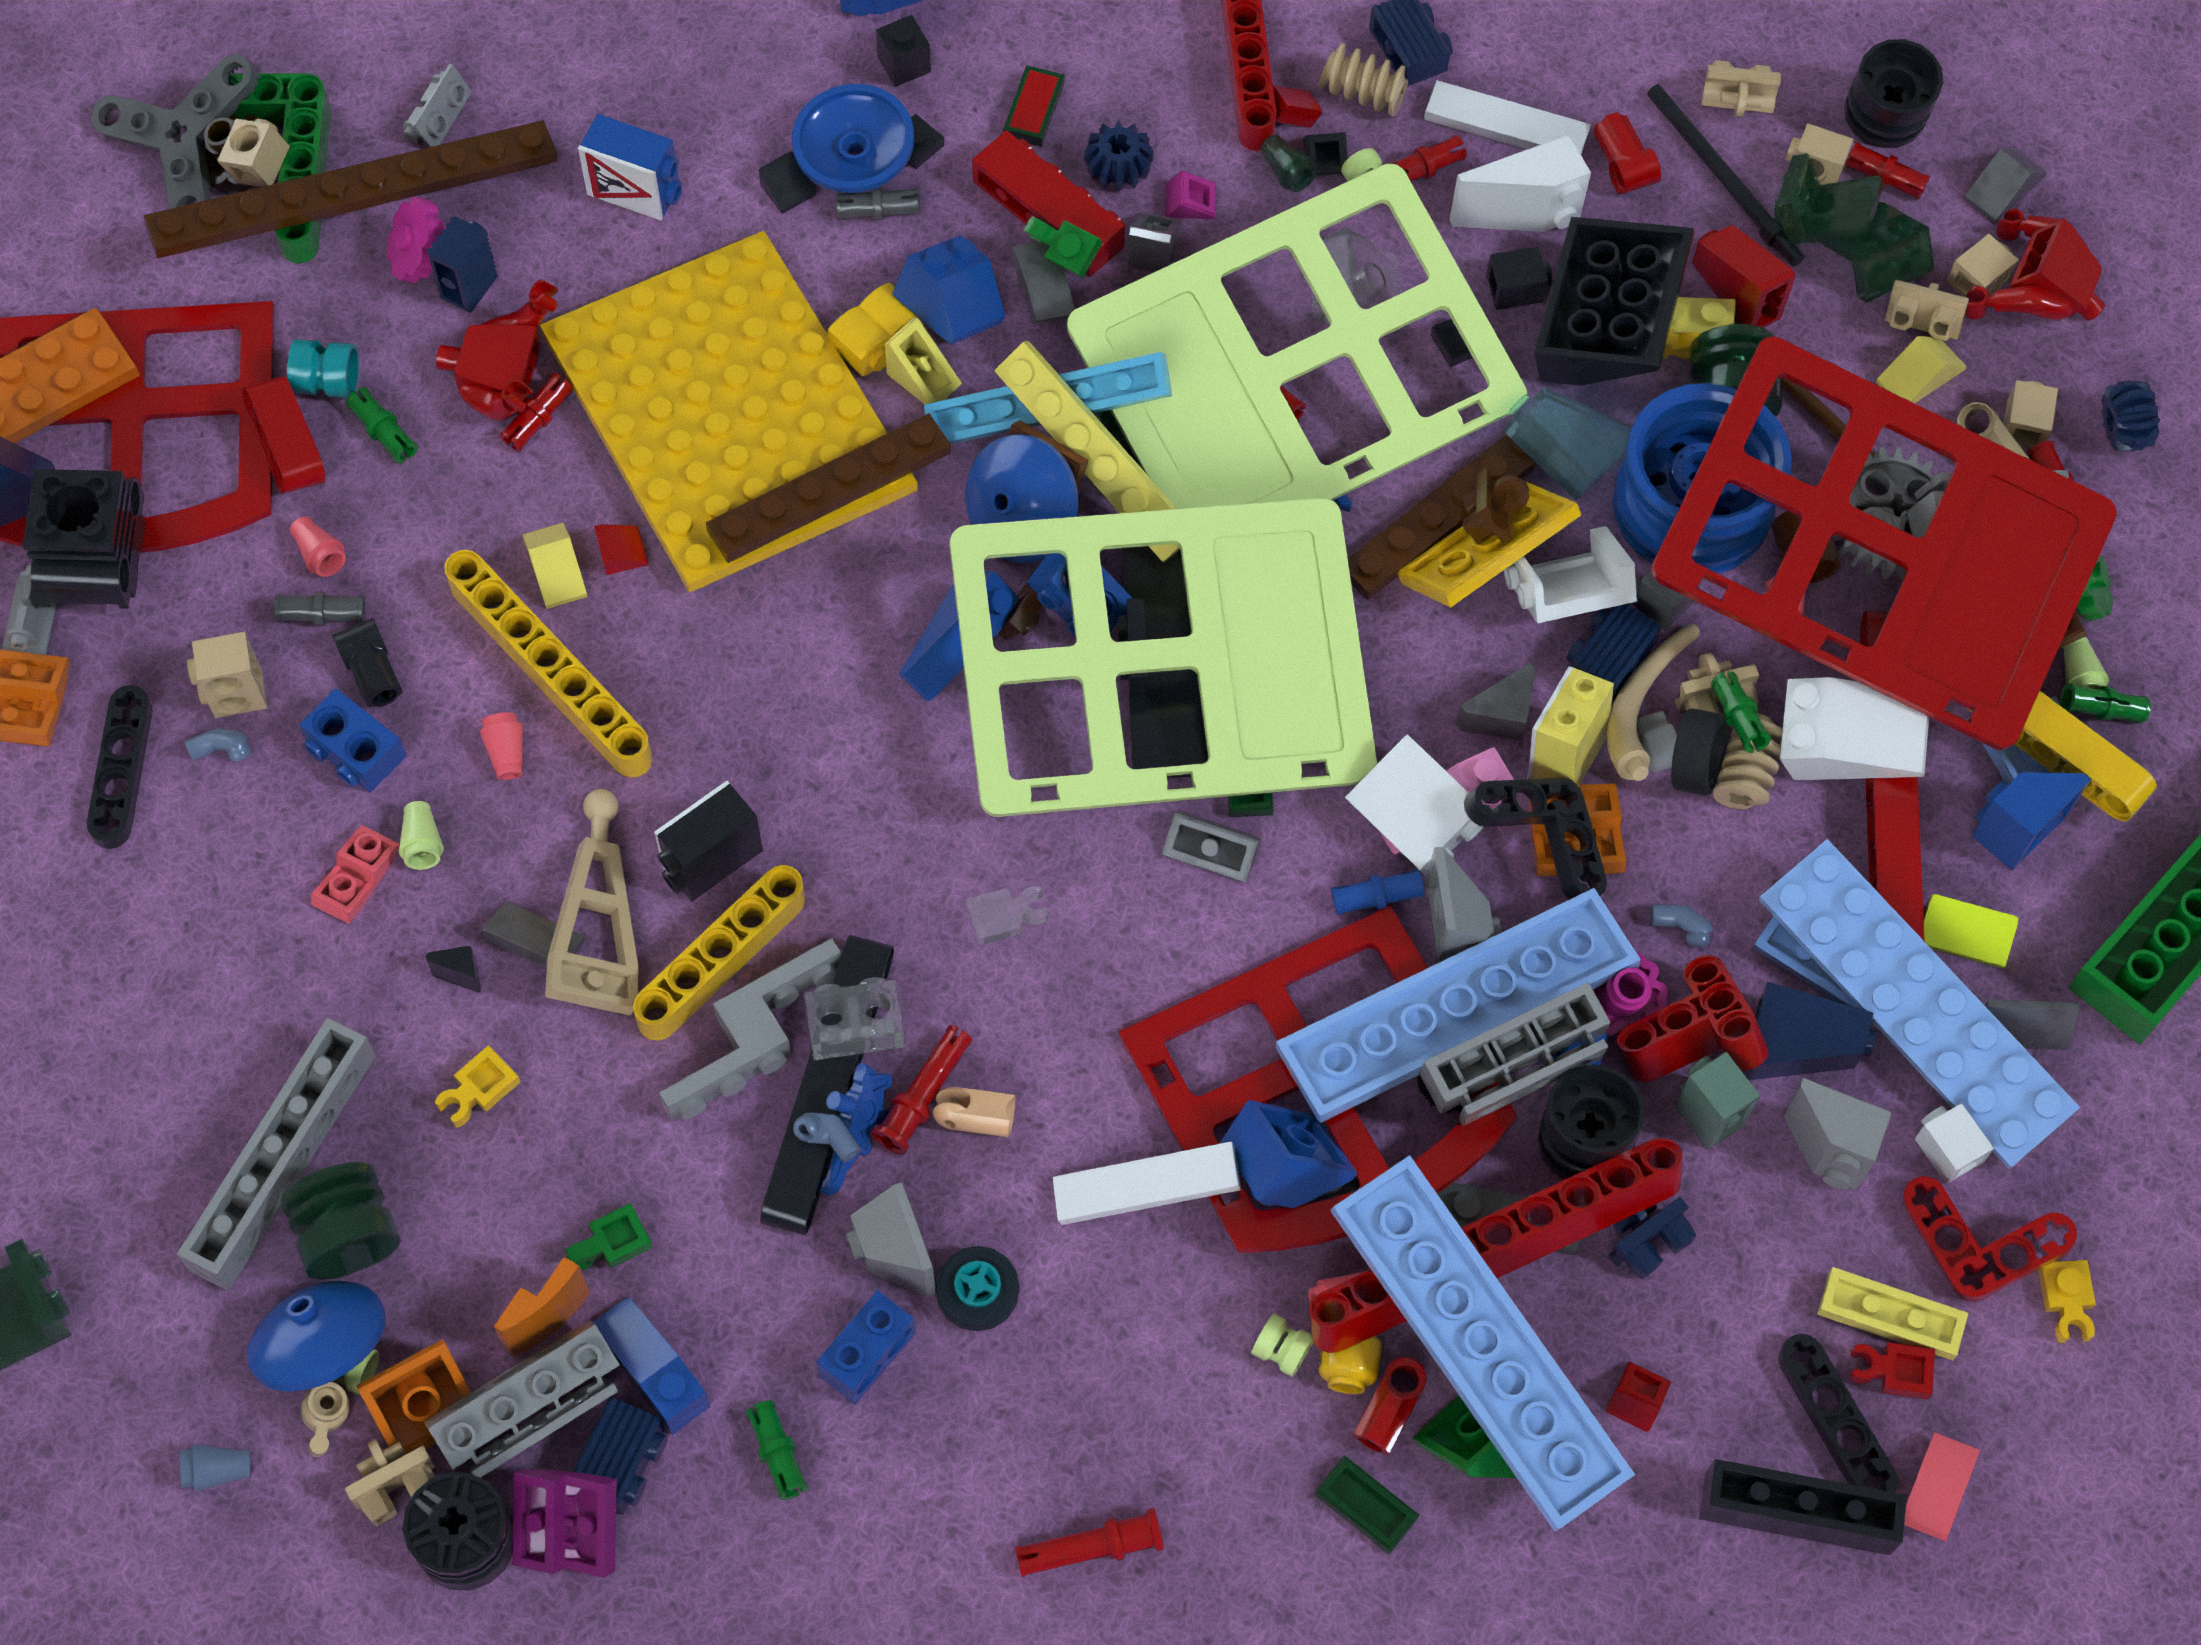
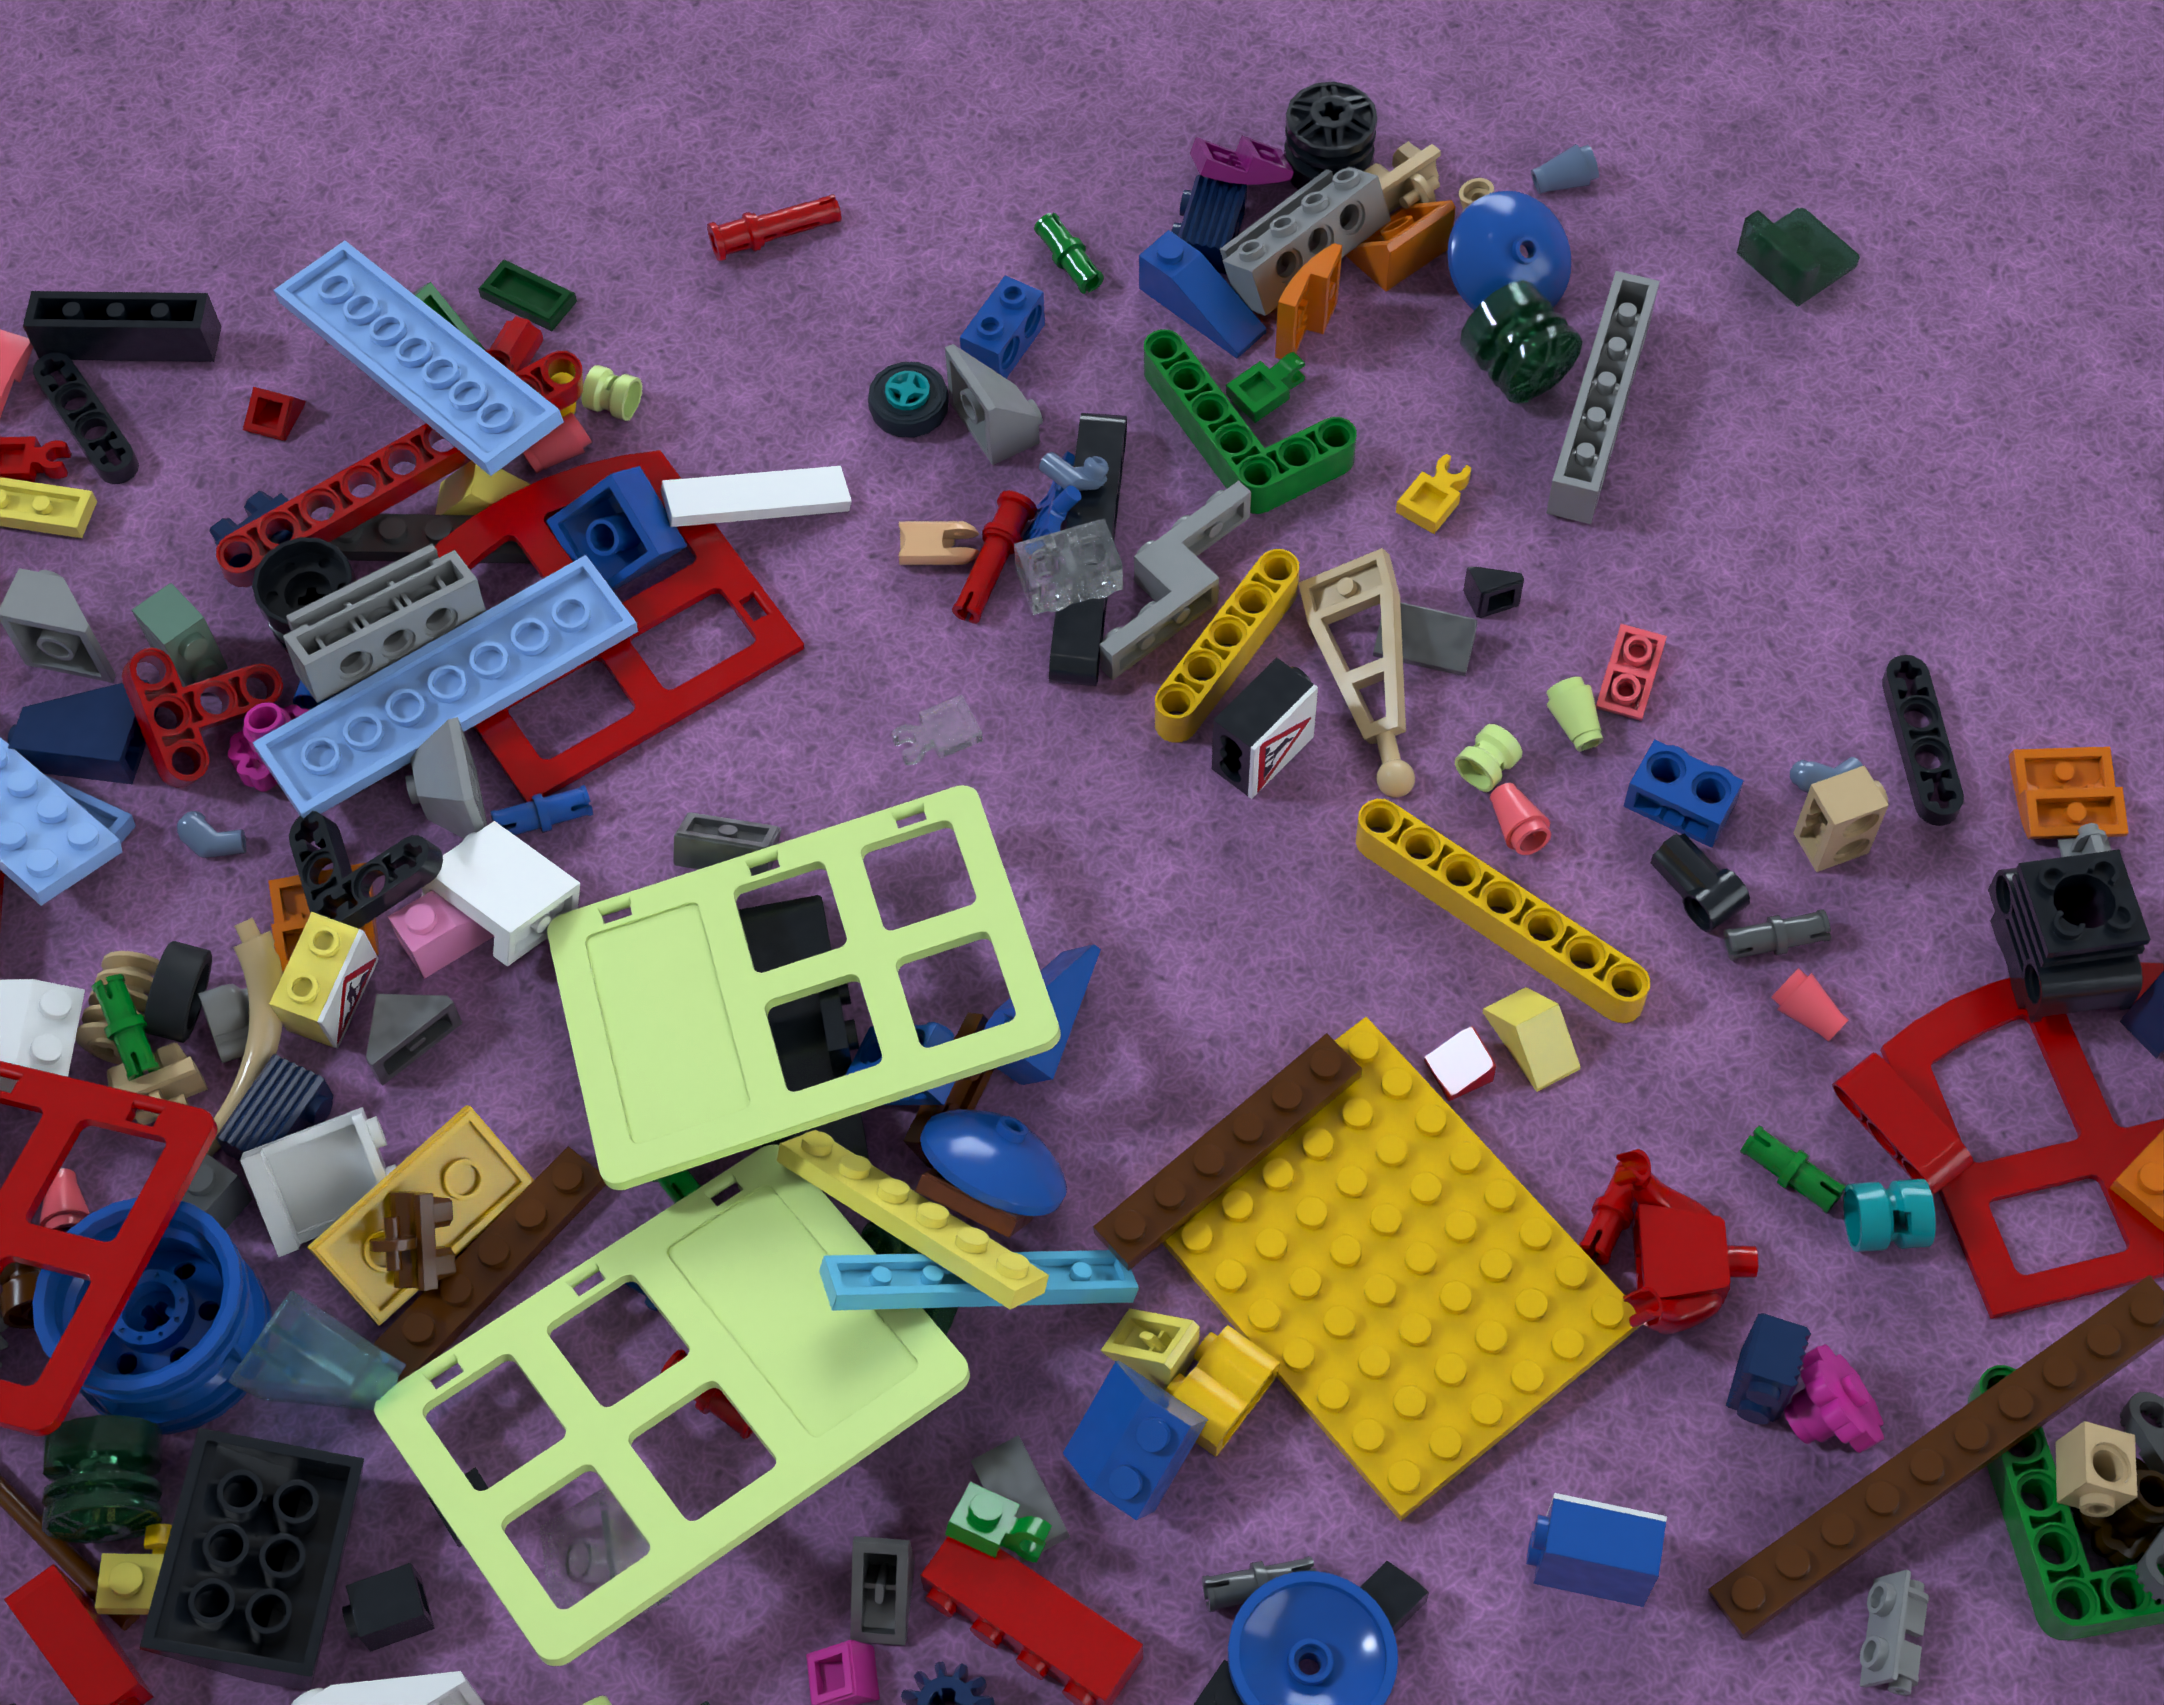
camera: 175 degrees right, 5 degrees down
(513, 802) = (1492, 753): none -> yellowish green wheel
(663, 1184) = (1227, 442): none -> green beam

